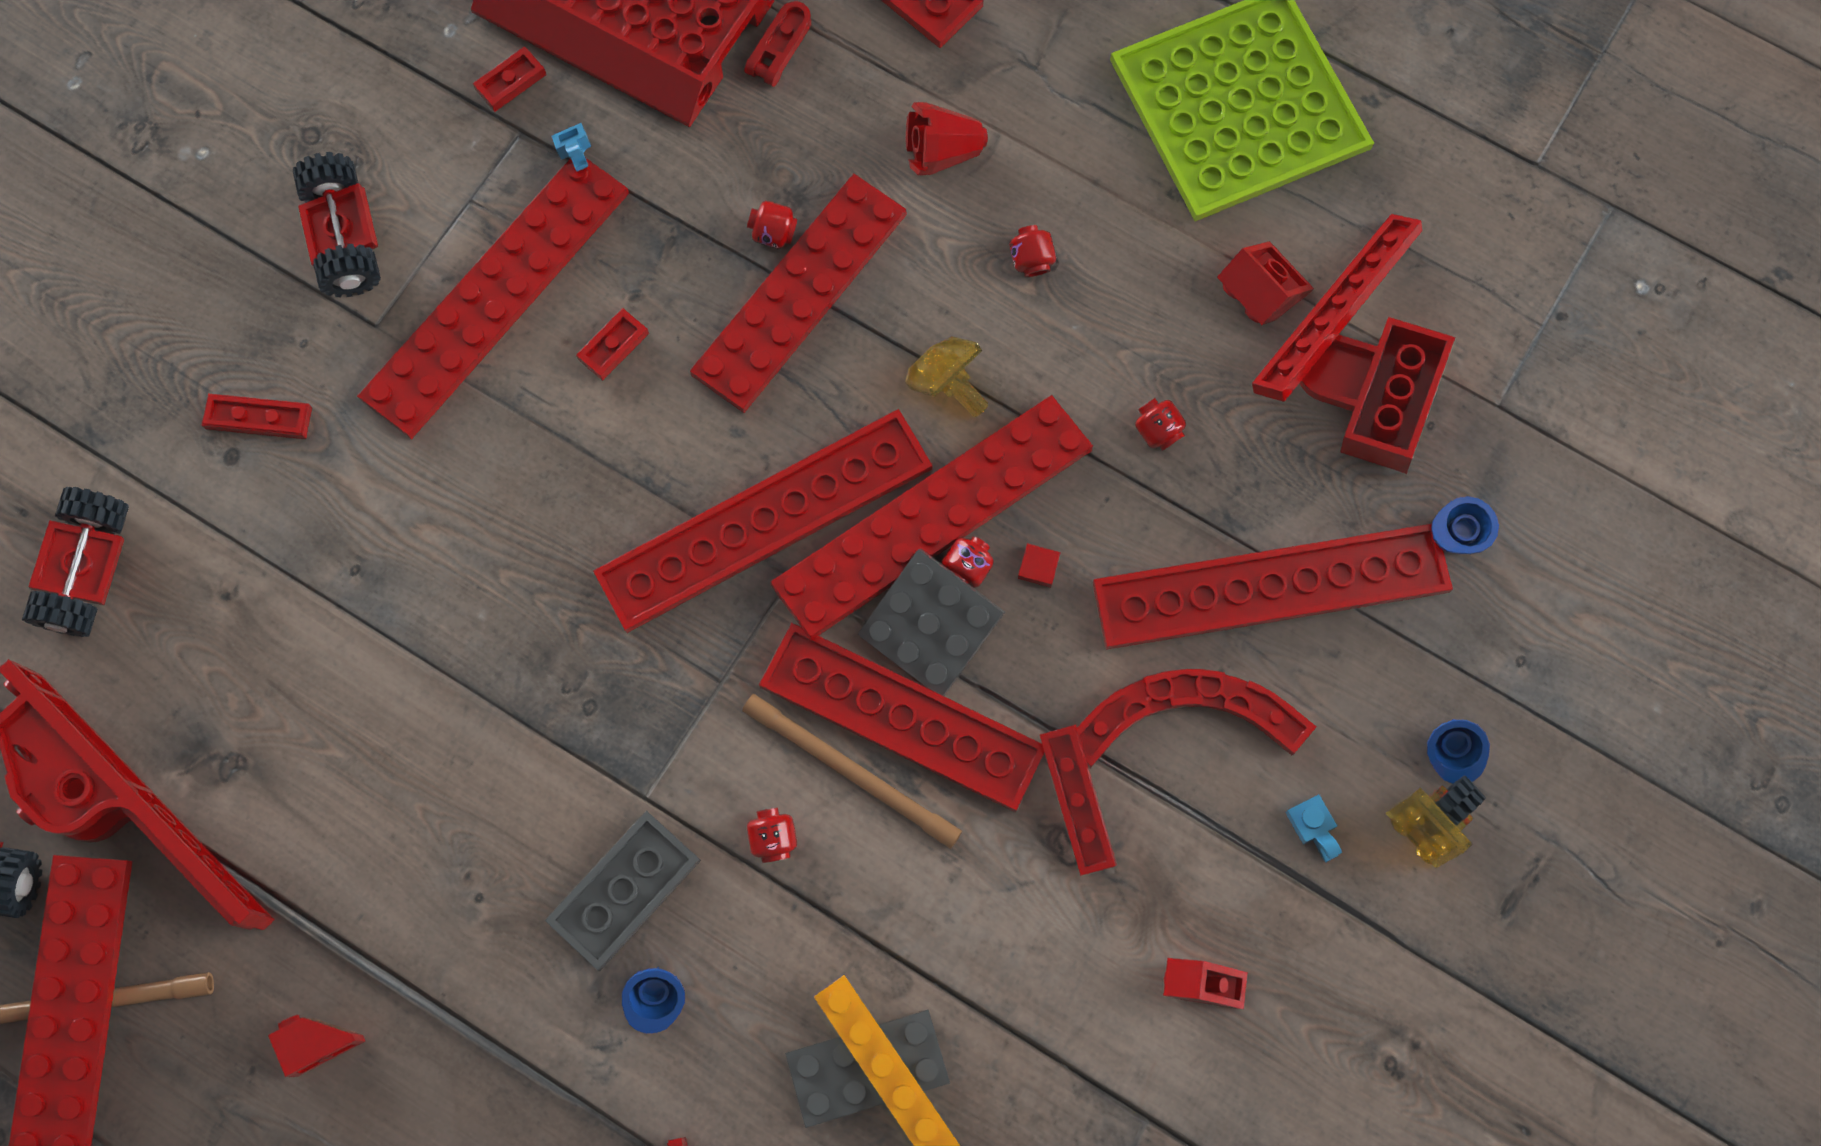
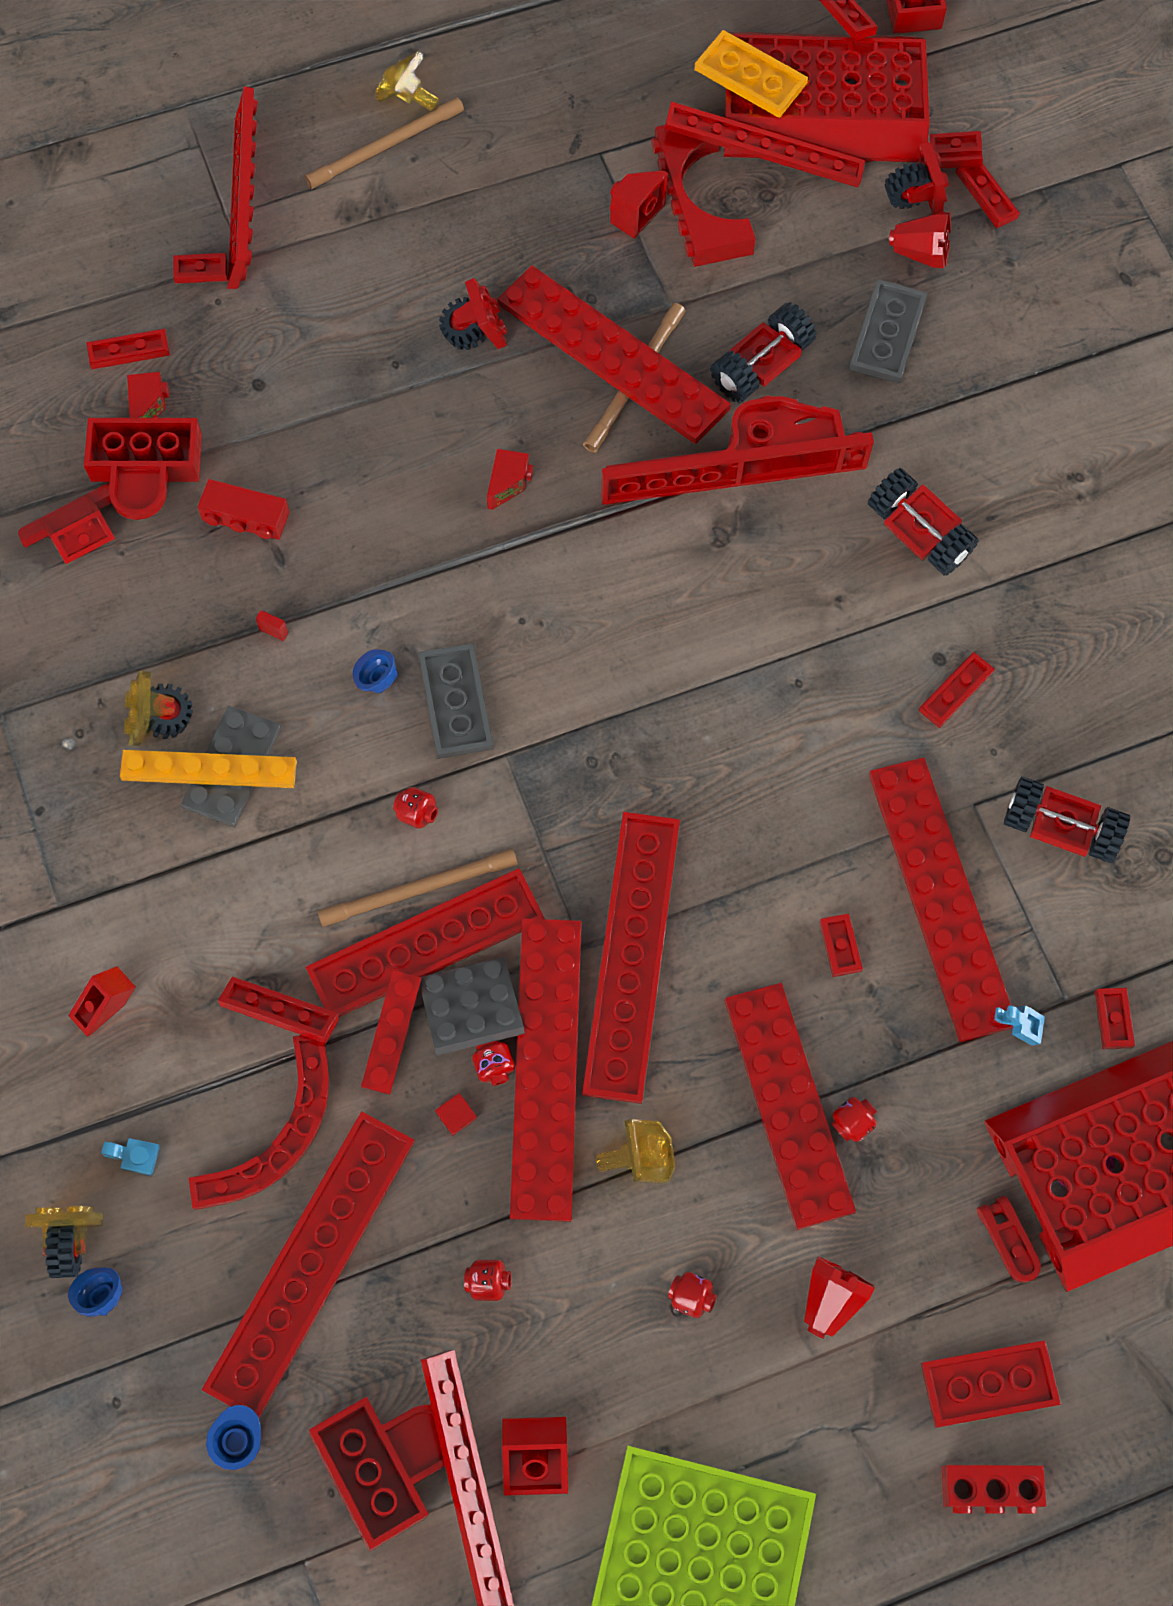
camera: 125 degrees right, 5 degrees down
(1012, 678) = (391, 1032): none -> red plate

